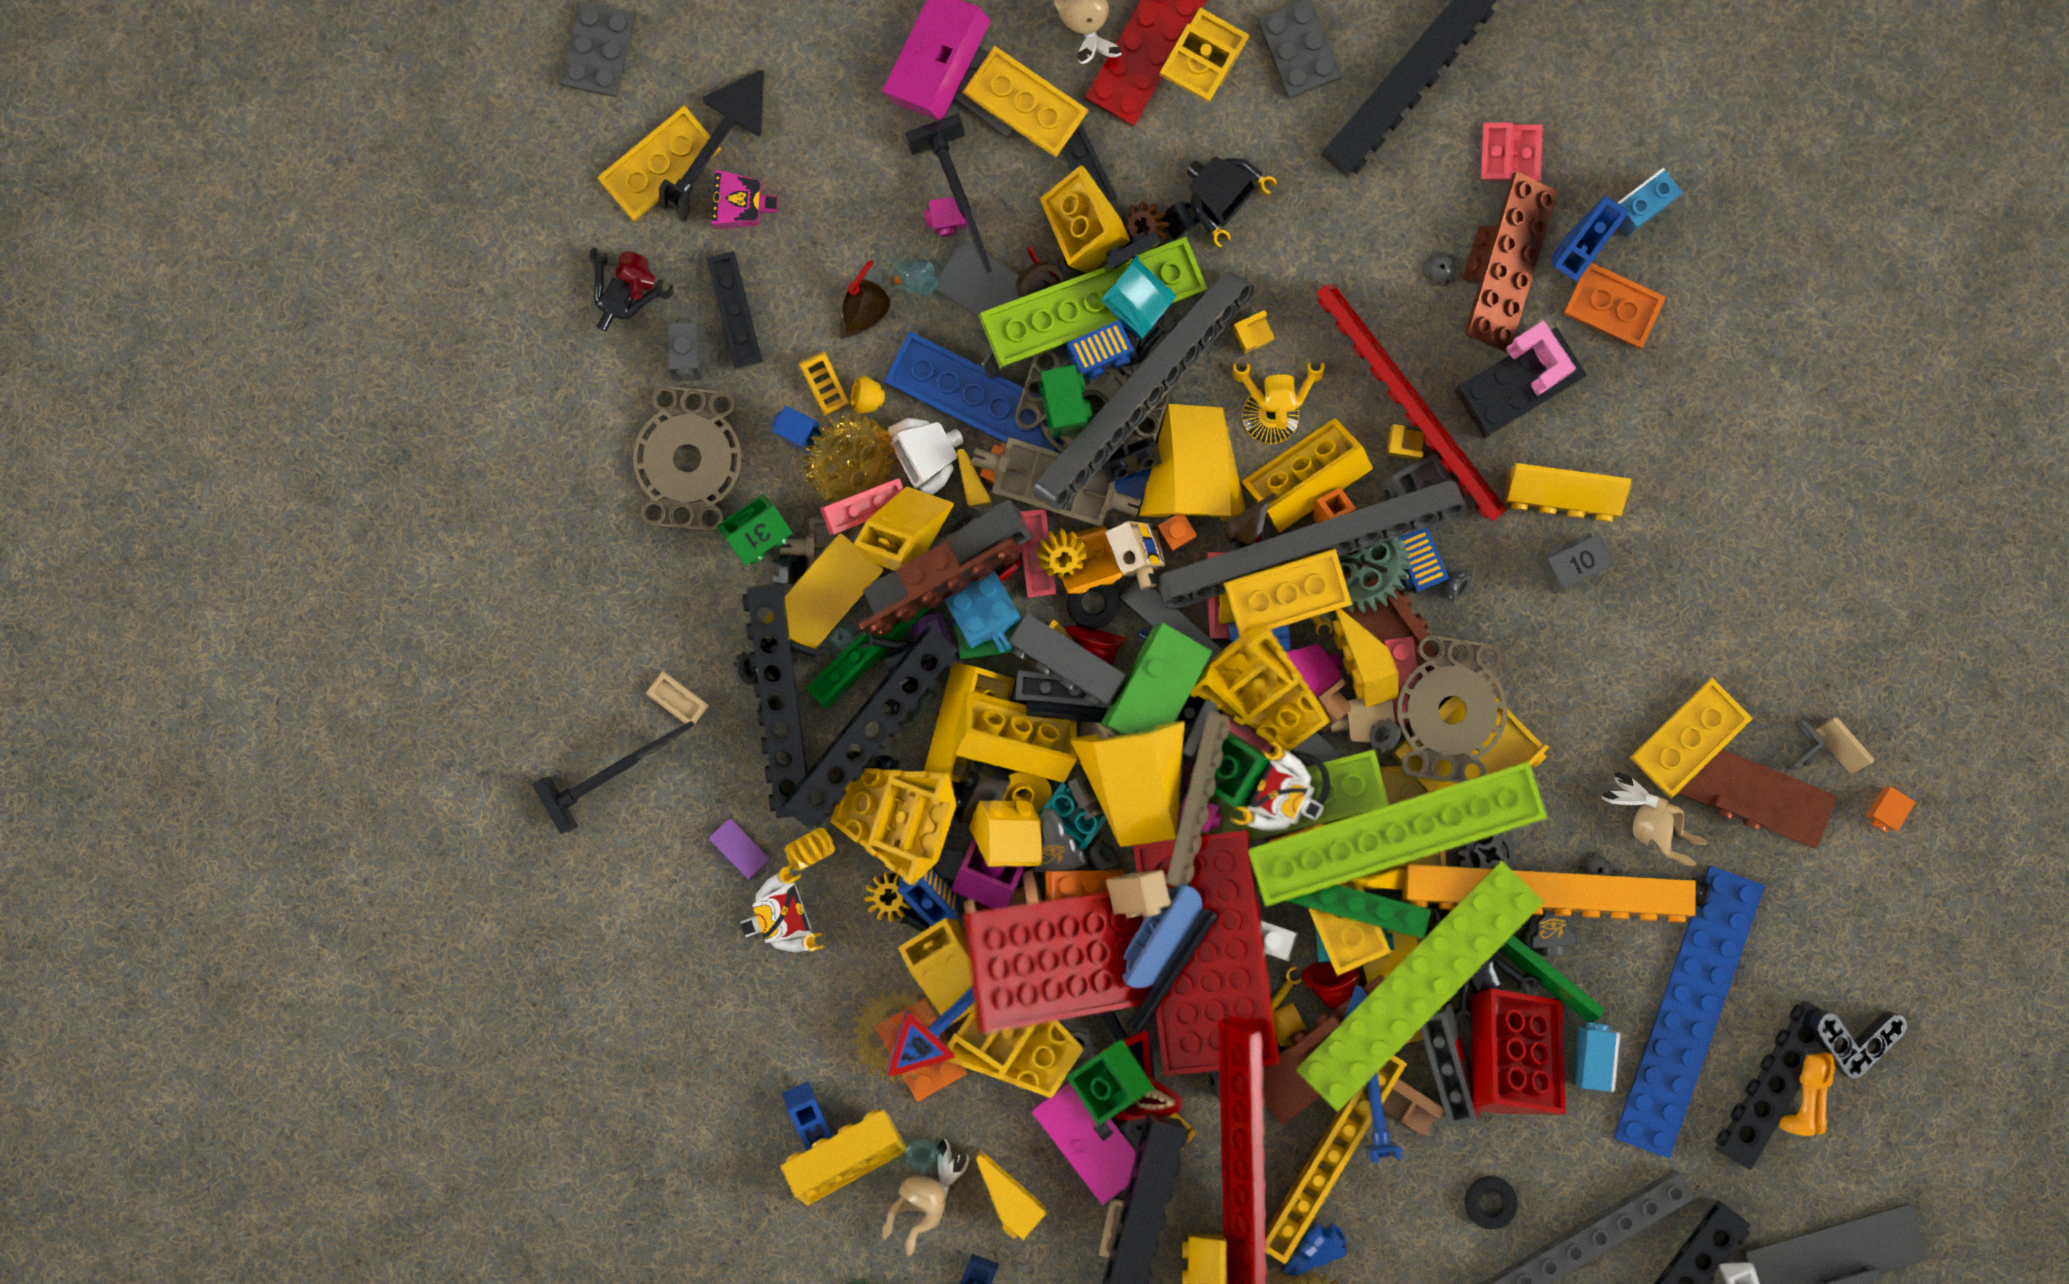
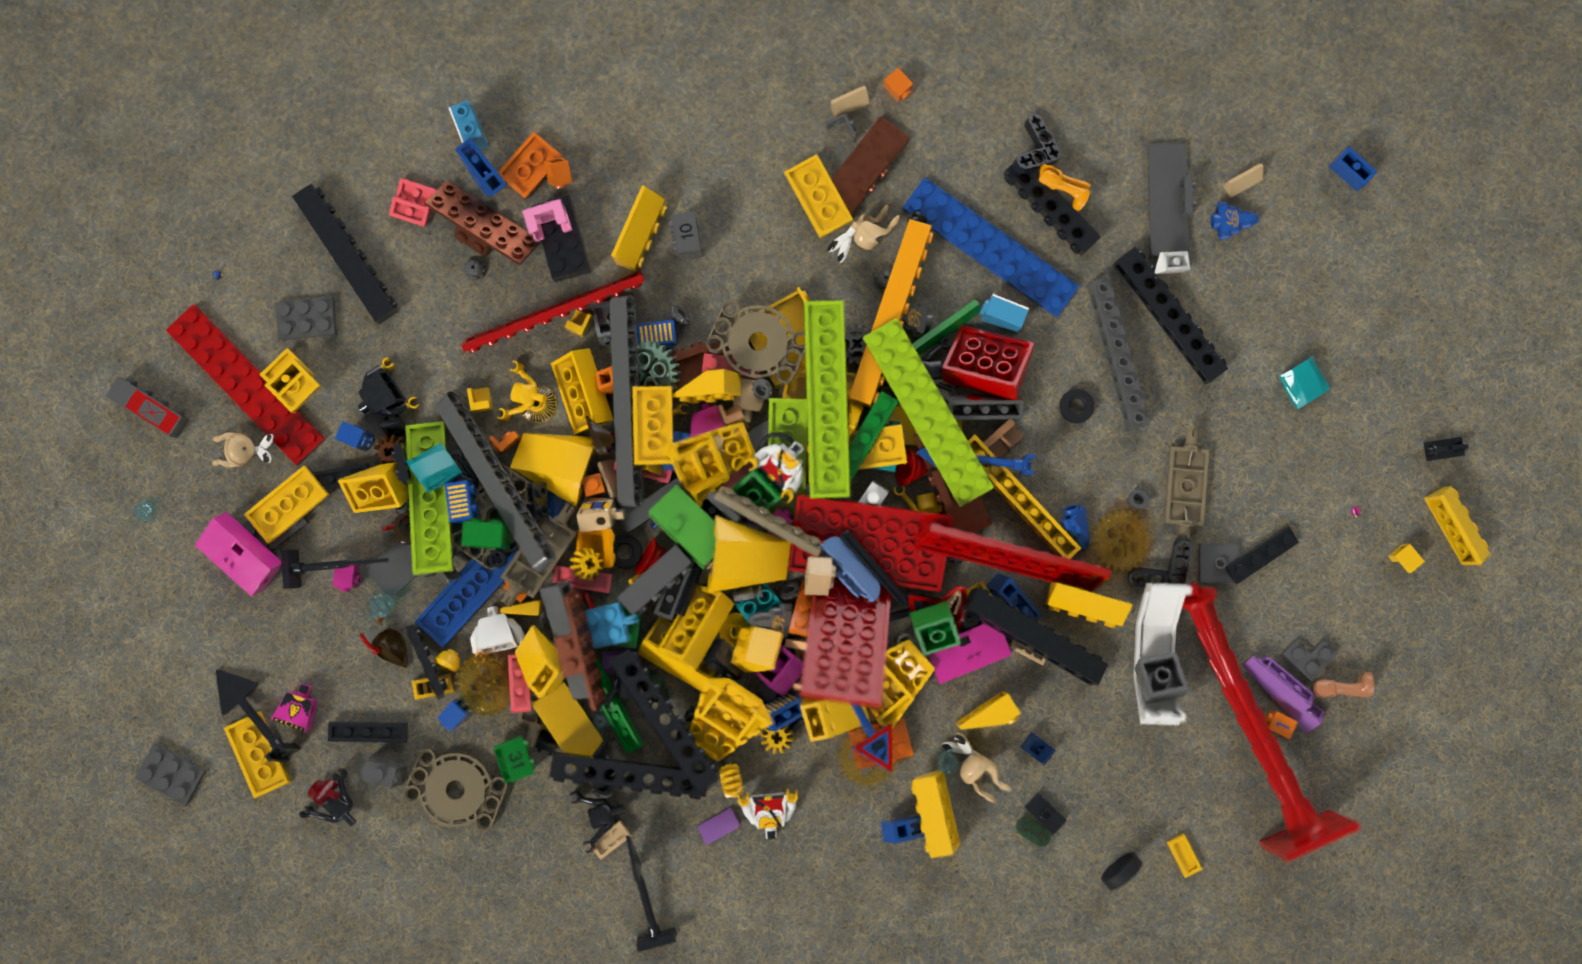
camera: 65 degrees left, 0 degrees up
(706, 674) = (599, 816): none -> black piece
(866, 357) = (429, 668): none -> black plate
(1027, 419) = (503, 556): none -> black bush
(1150, 171) = (355, 436): none -> blue brick
(1194, 551) = (609, 477): none -> tan slope
(1194, 1173) = (1007, 589): none -> blue slope
(1206, 390) = (507, 442): none -> orange bracket
(1615, 350) = (558, 172): none -> orange brick

